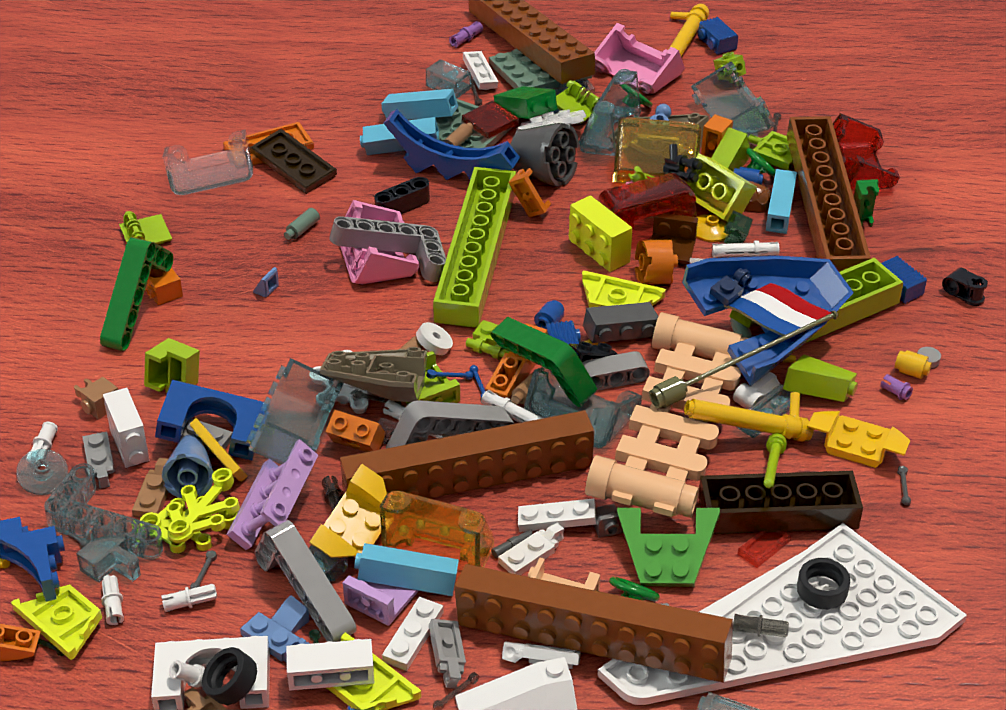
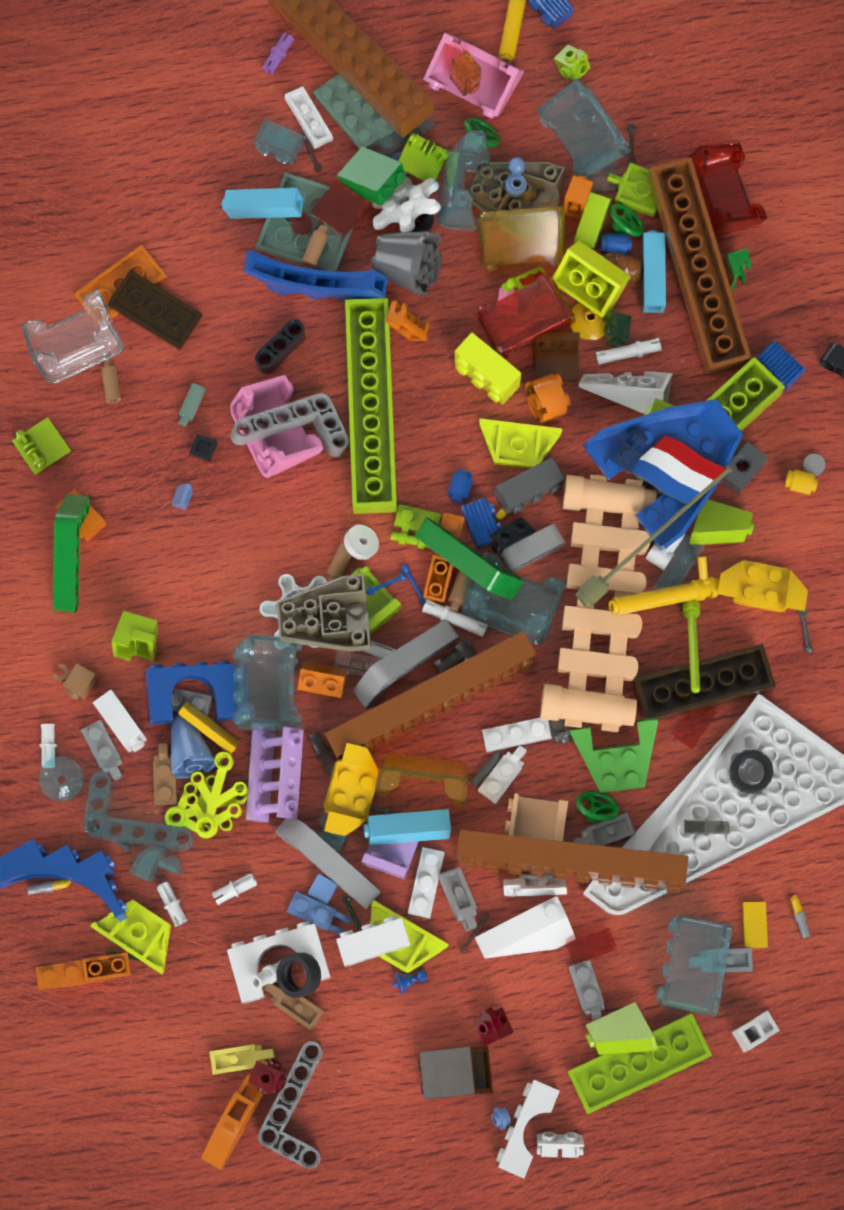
camera: 10 degrees left, 35 degrees up
(210, 556) = (236, 837): dark grey hinge -> none
(231, 200) = (110, 382): none -> medium nougat cylinder
(301, 253) = (203, 448): none -> black plate
(378, 139) = (233, 262): medium azure brick -> none
(450, 123) = (301, 225): none -> clear red tile
(630, 52) = (465, 73): none -> clear orange brick
(677, 165) = (546, 260): black piece -> none
(851, 345) = (752, 459): none -> dark grey brick
(901, 389) = (789, 512): medium lavender pin -> none

